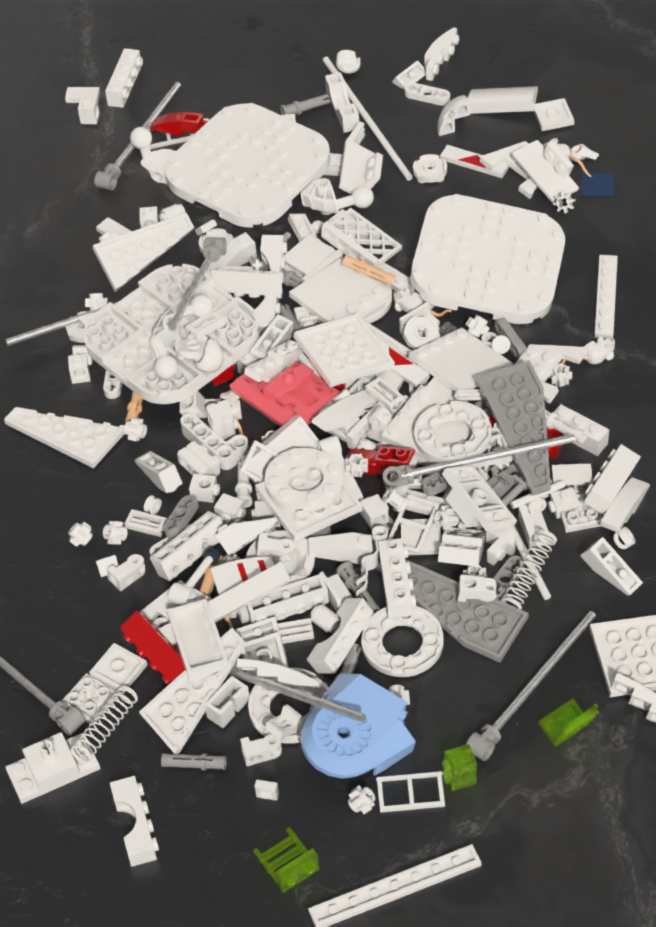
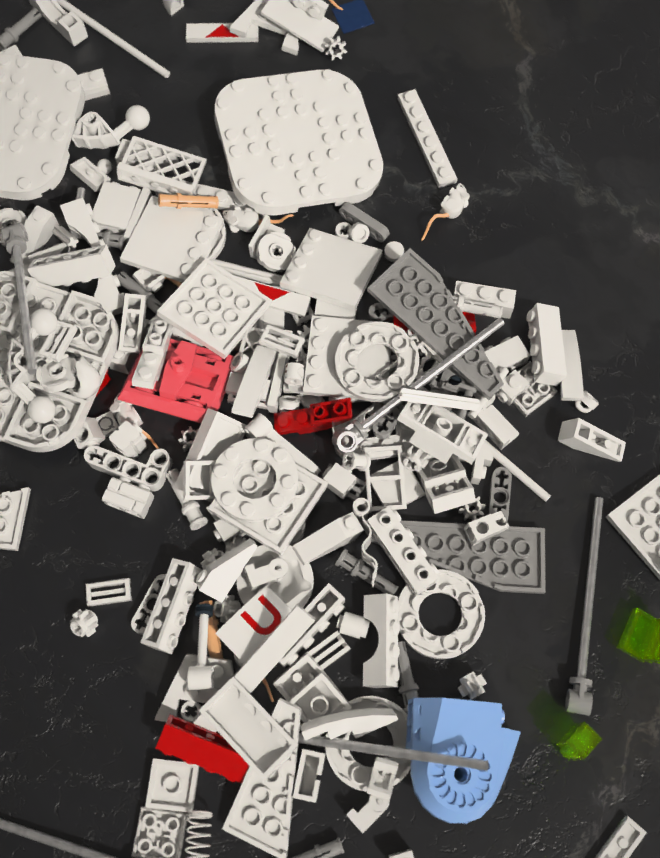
camera: 30 degrees left, 20 degrees up
(80, 534) = (47, 641): white gear -> none
(105, 563) = (94, 662): white slope -> none
(127, 572) = (122, 663): white leg -> none
(134, 407) = (25, 460): light nougat pin -> none
(135, 429) = (40, 487): white gear -> none
(152, 504) = (105, 570): white bush -> none
(160, 471) = (91, 526): white slope -> none
(175, 524) = (148, 579): light grey beam -> none
(204, 487) = (141, 521): white brick -> none
(230, 509) = (190, 540): white brick -> none
(336, 590) = (348, 587): white panel -> none
(356, 465) = (295, 441): white gear -> none
(357, 134) = (90, 50): white tile -> none
(359, 167) = (115, 84): white bracket -> none
(361, 799) = (500, 822): white gear -> none
(412, 805) = (546, 798): white window -> none
(436, 174) = (186, 65): white plate -> none
(447, 328) = (298, 236): dark grey bush -> none
(469, 395) = (363, 307): white axle -> none
(477, 326) = (325, 221): white gear -> none
(488, 476) = (439, 399): none -> white axle
(544, 360) = (413, 234): white wing -> none
(552, 542) = (521, 439): white piece -> none
(560, 375) = (432, 238): white gear -> none

